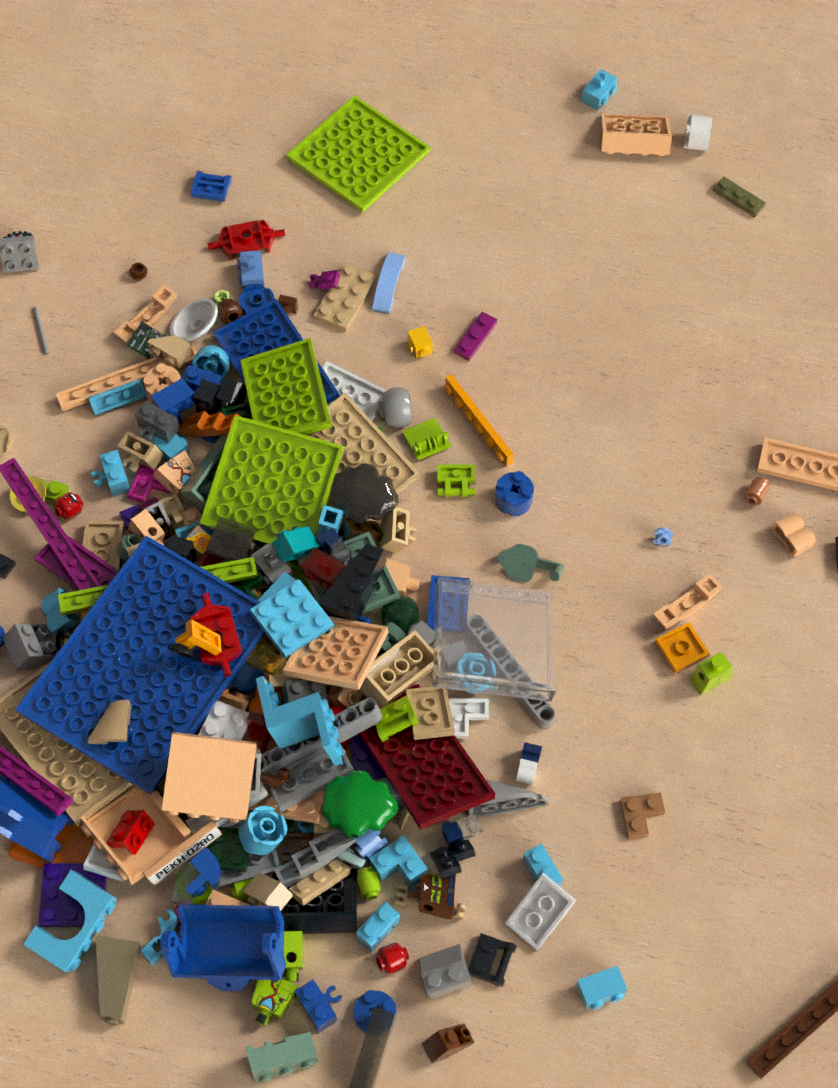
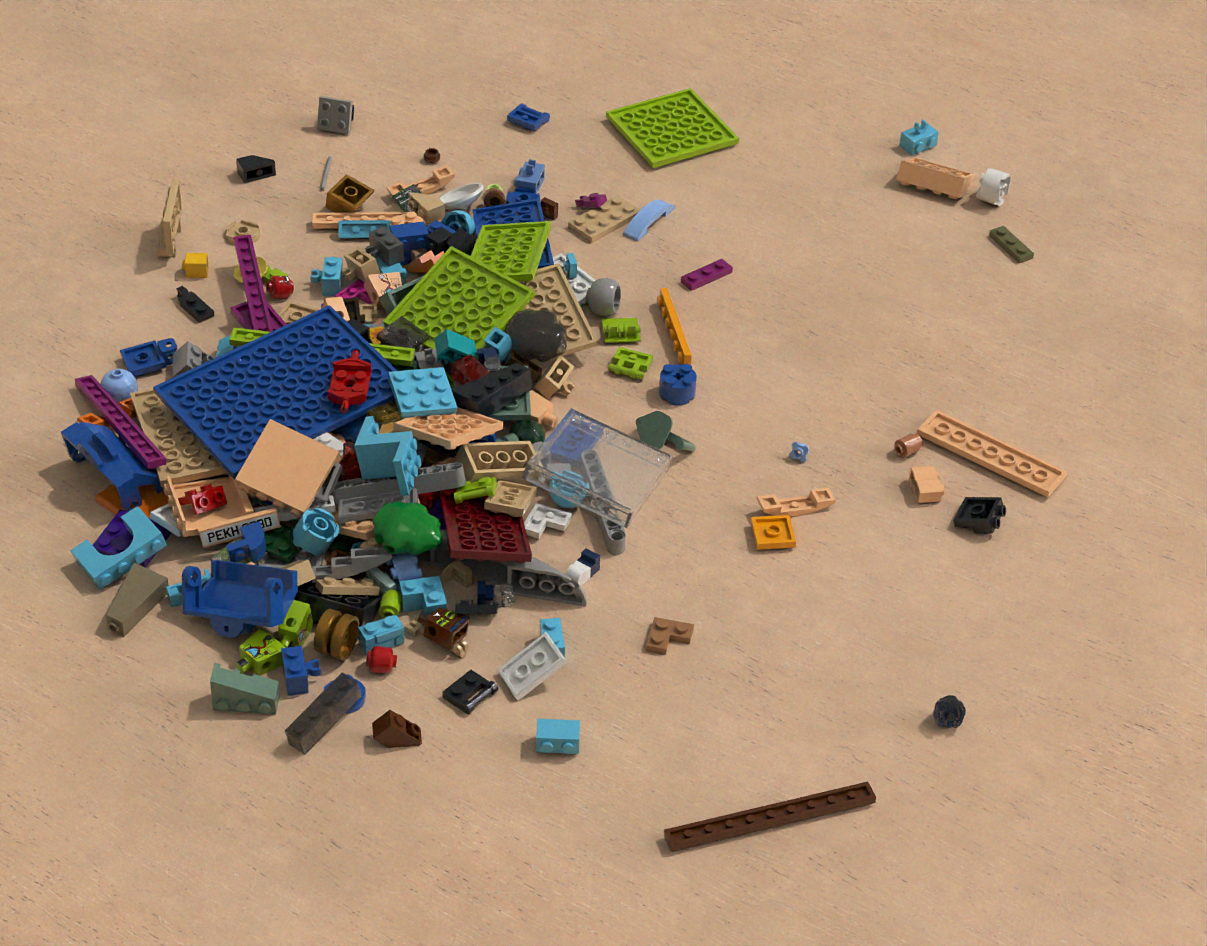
camera: 20 degrees right, 20 degrees down
(83, 360) = (347, 195): none -> pearl gold slope
(113, 724) = (229, 416): tan slope -> none
(196, 635) = (328, 371): light orange piece -> none
(233, 243) = (550, 157): red plate -> none
(276, 780) = (347, 499): reddish brown arm -> none
(339, 950) = (336, 634): none -> pearl gold wheel
(347, 378) = (570, 265): none -> medium azure plate
(419, 342) = (652, 263): yellow brick -> none
(445, 972) = (422, 686): light grey slope -> none
(714, 670) = (790, 553): lime torso -> none

